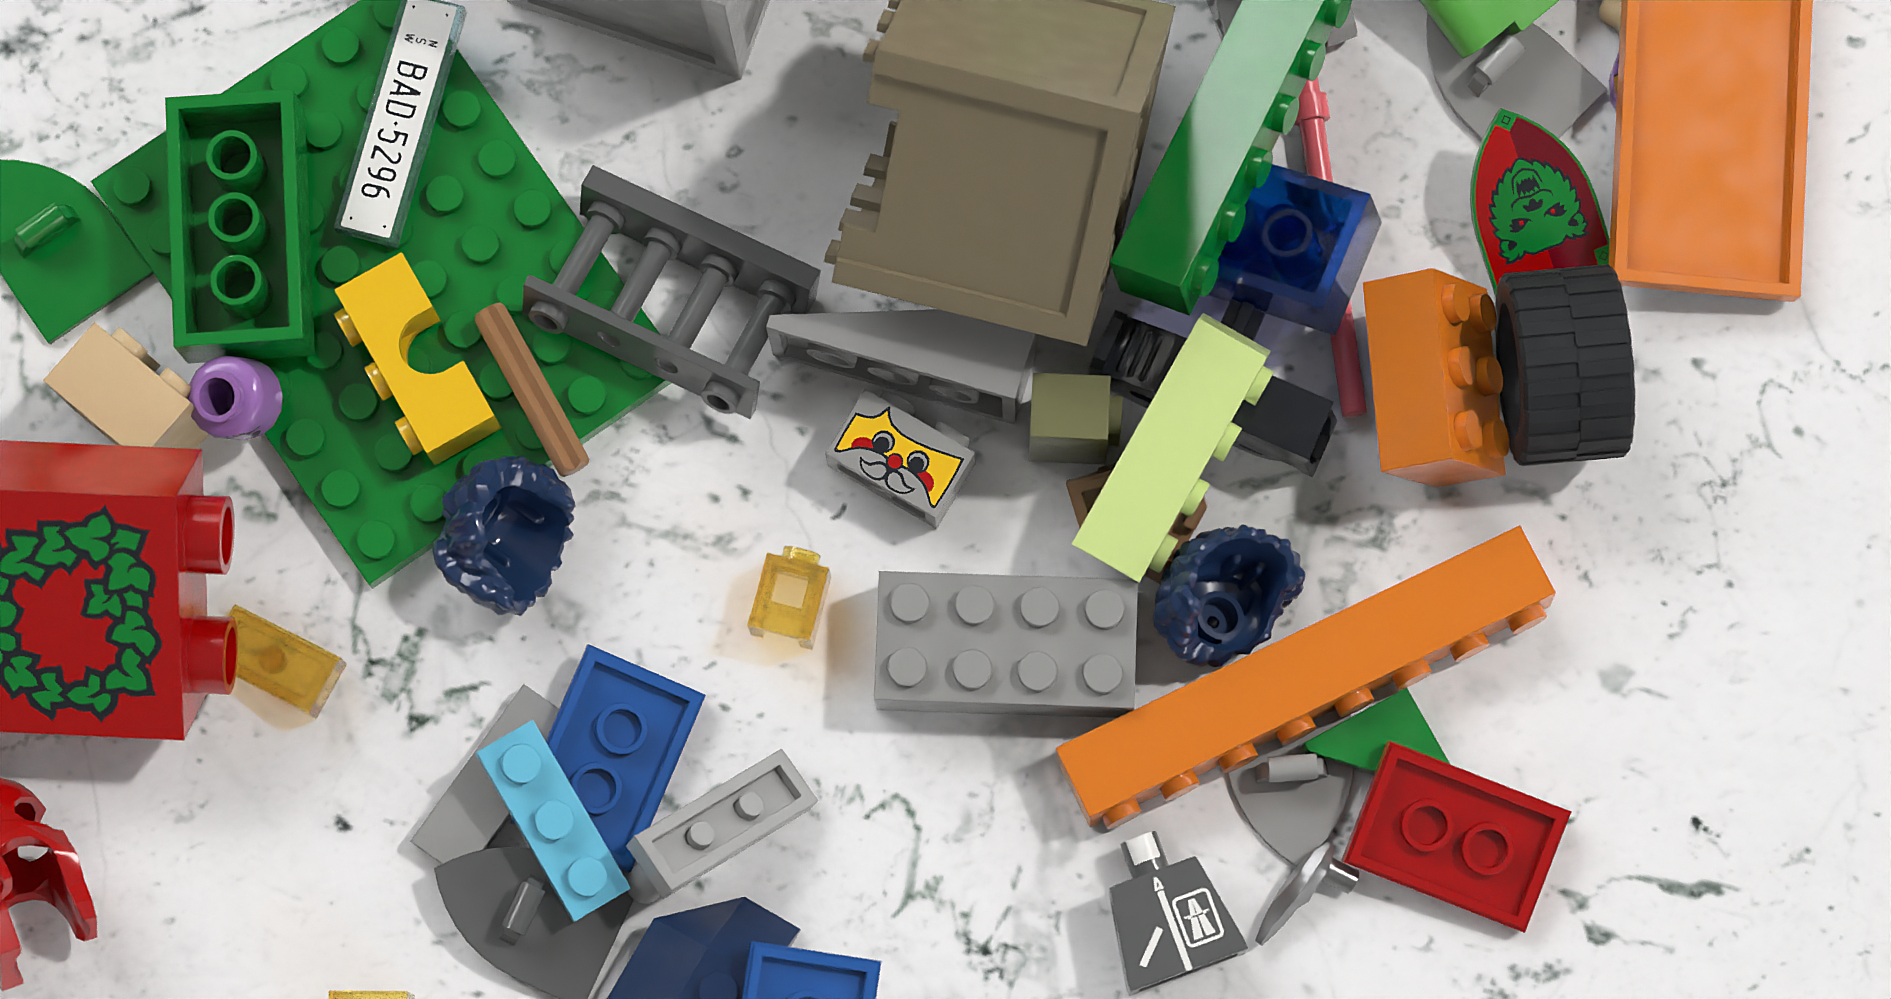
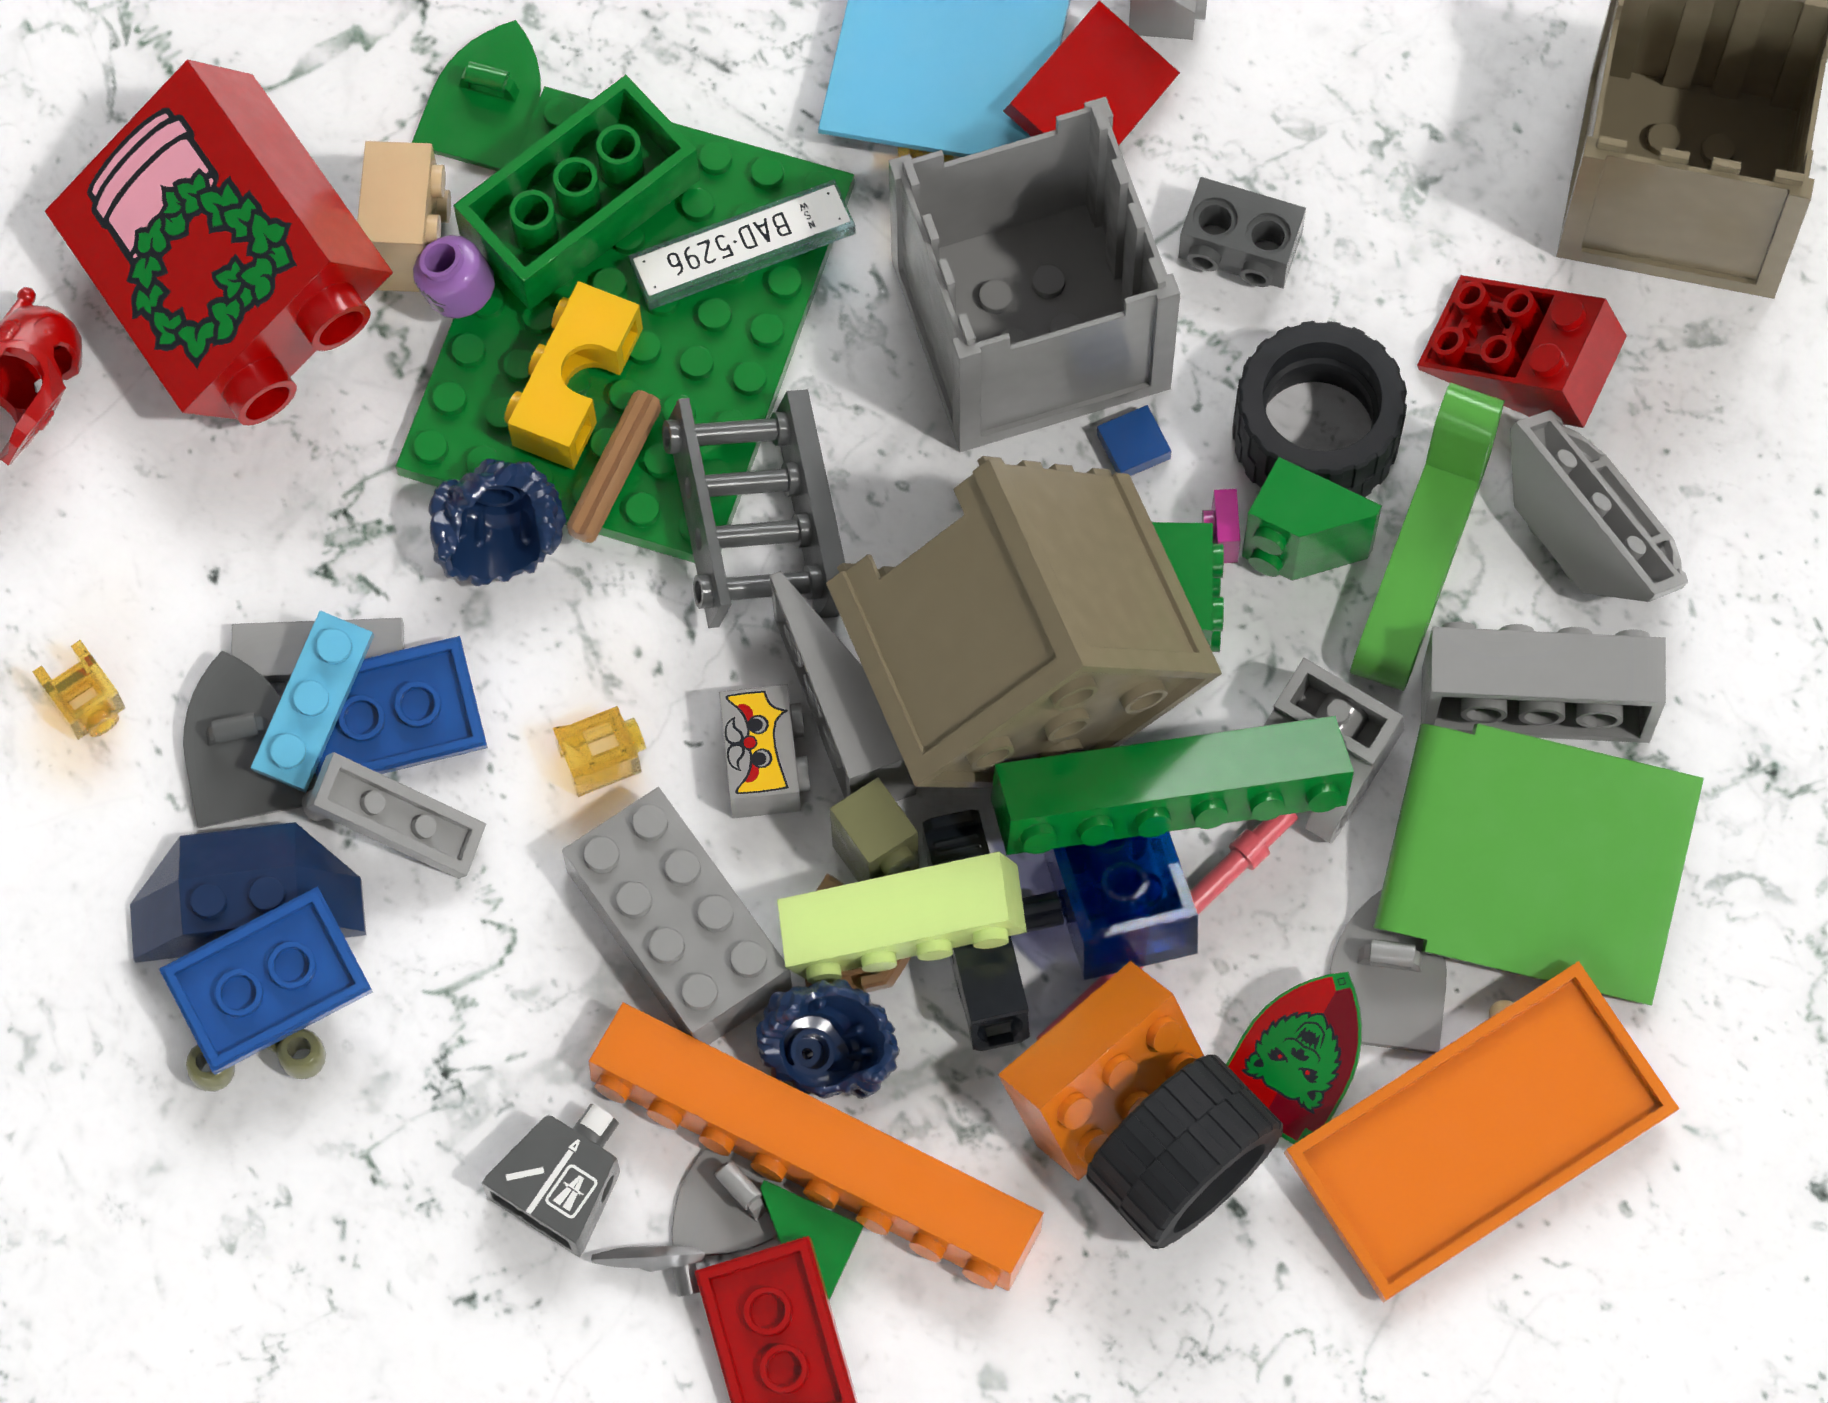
camera: 50 degrees right, 10 degrees down
(284, 663) = (297, 452): clear yellow slope -> none

